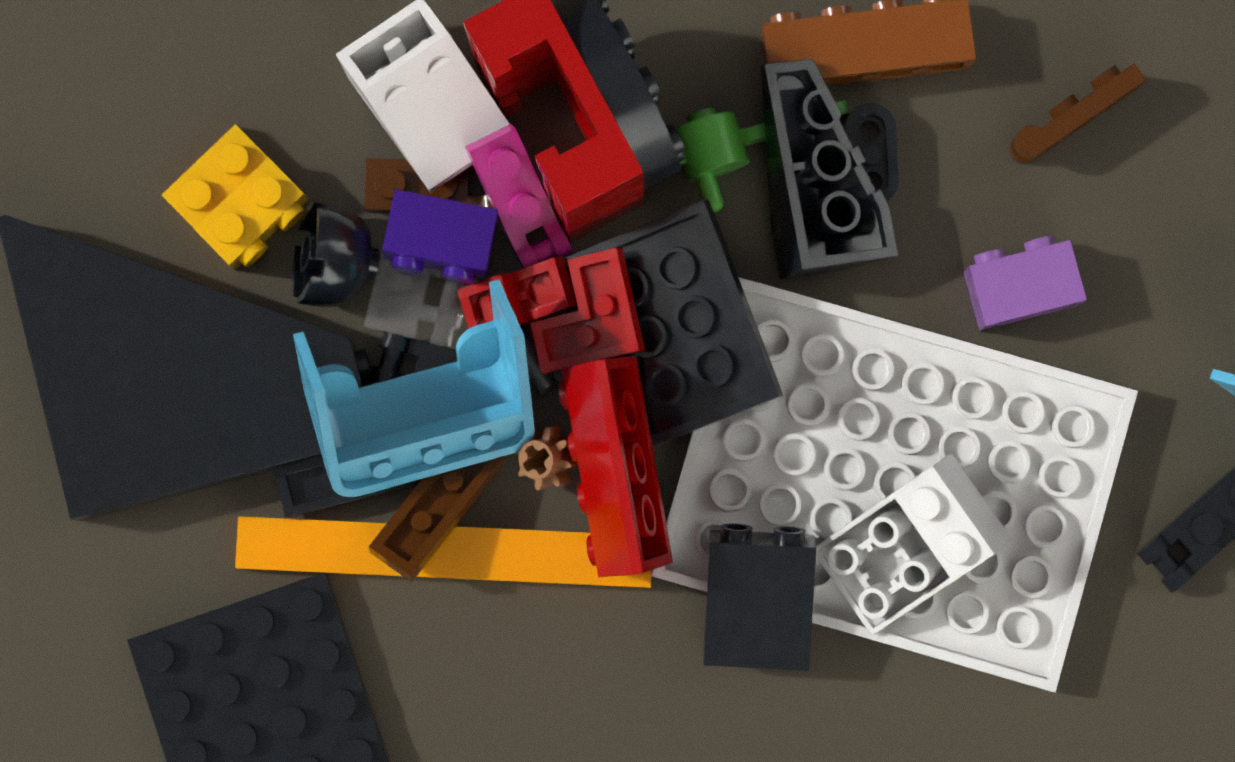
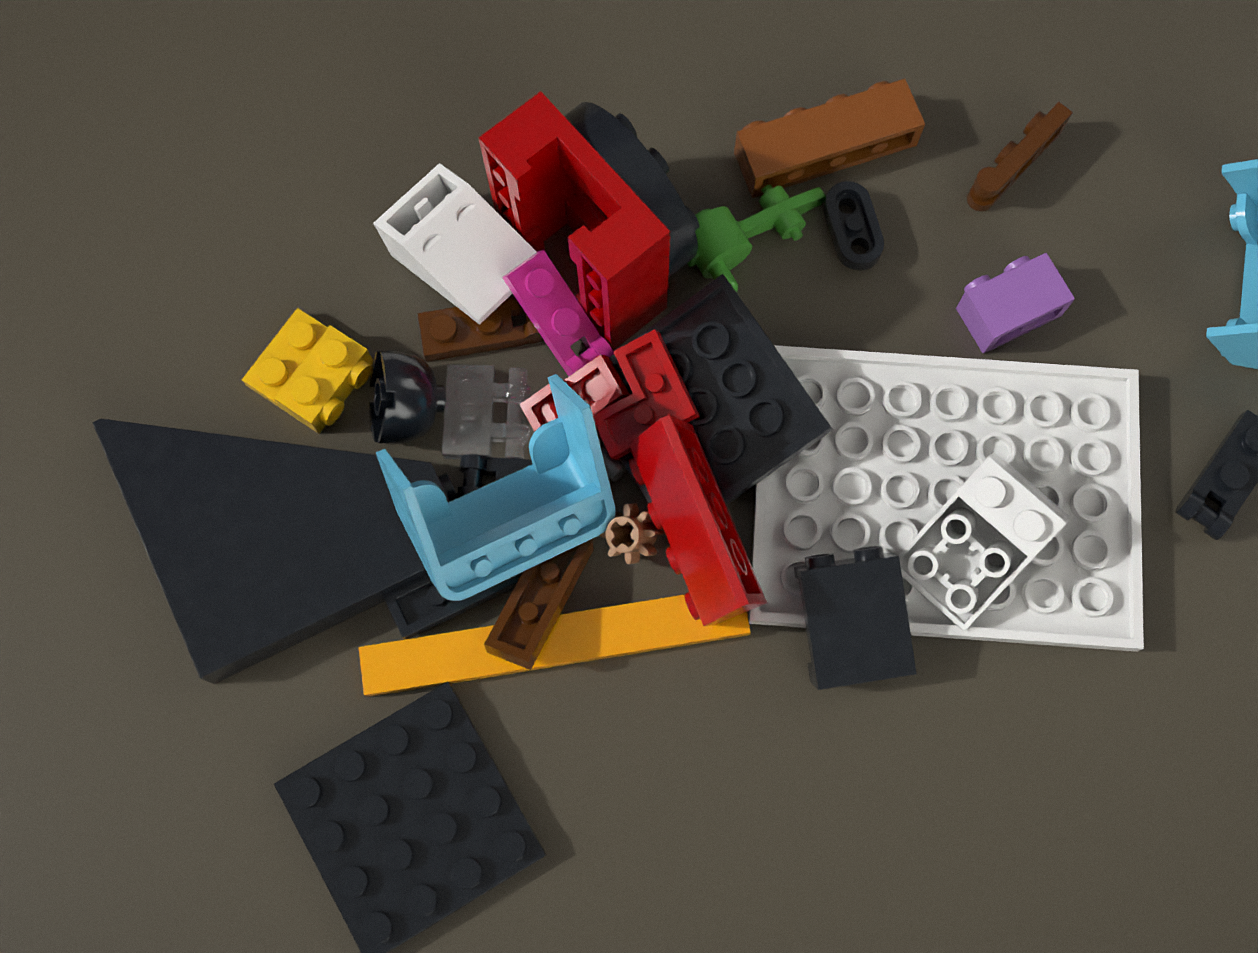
camera: 15 degrees left, 10 degrees down
(439, 236) = (494, 357): dark purple brick -> none
(819, 191) = (819, 261): black wedge -> none

